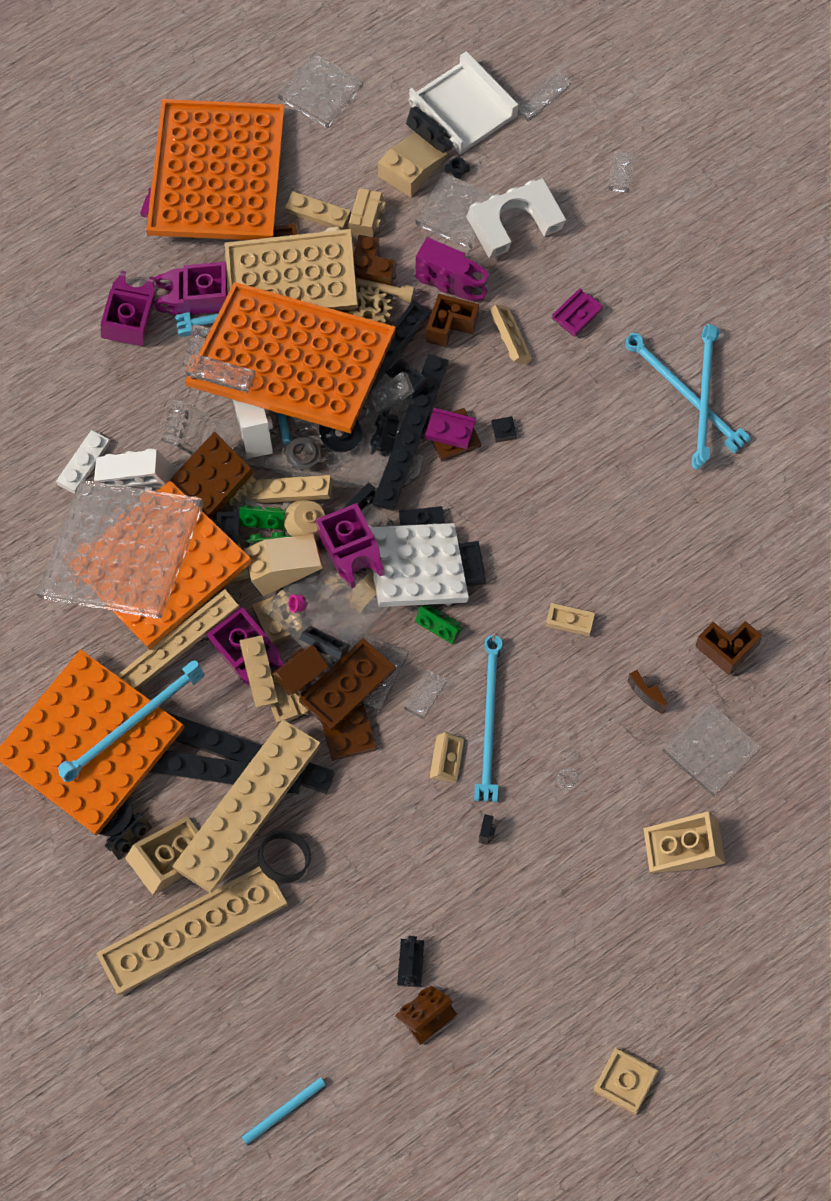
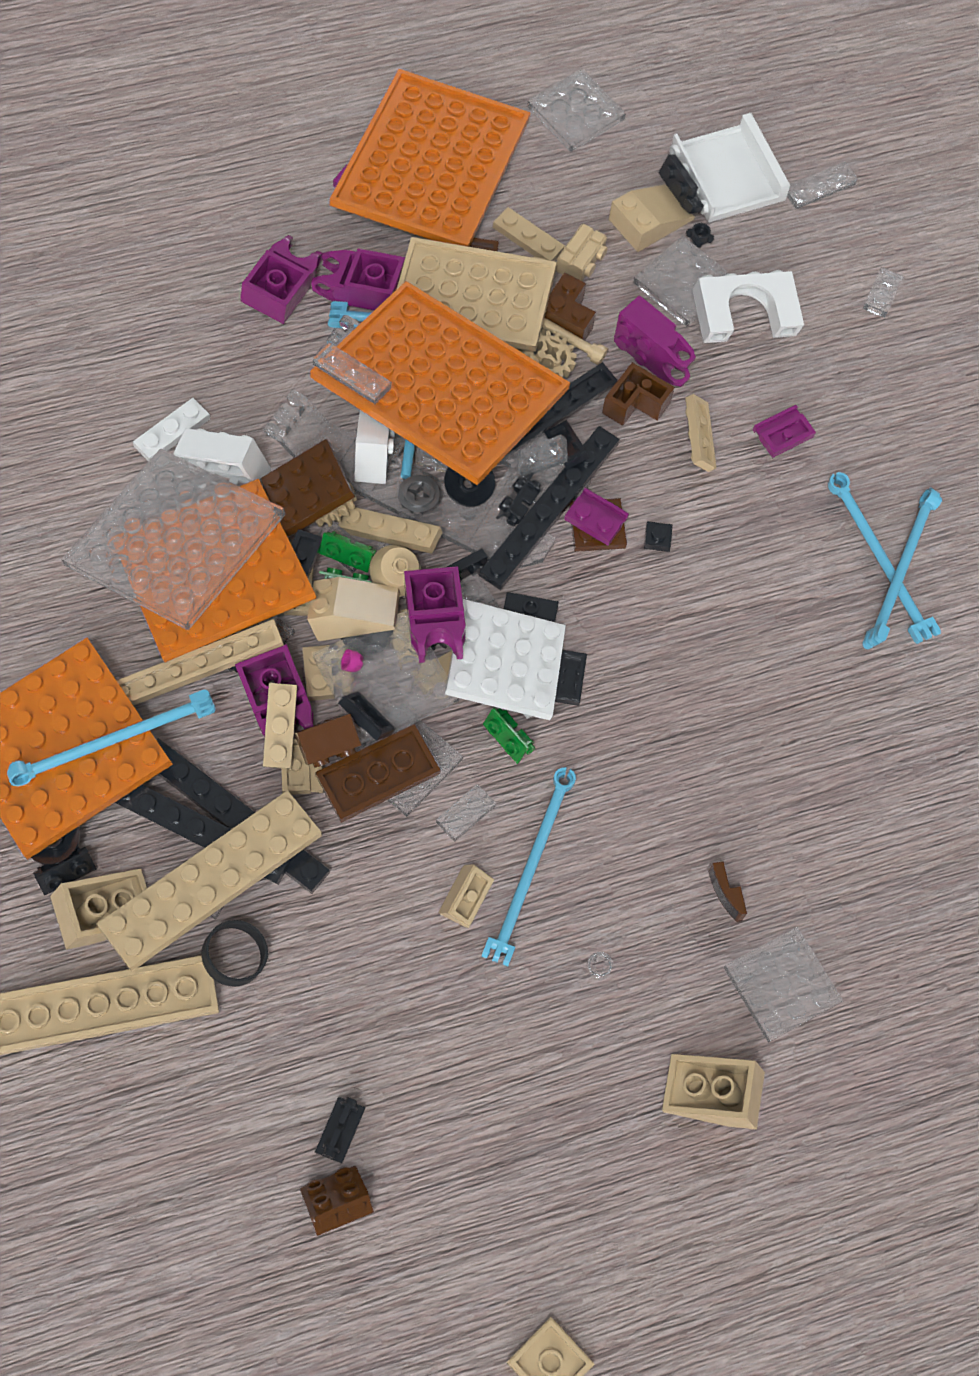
camera: 10 degrees right, 0 degrees up
(283, 1111) = (125, 1264): medium azure bar -> none
(351, 736) = (363, 835): reddish brown plate -> none
(487, 829) = (485, 997): black plate -> none
(570, 619) = (663, 777): tan plate -> none
(728, 650) = (841, 872): reddish brown brick -> none

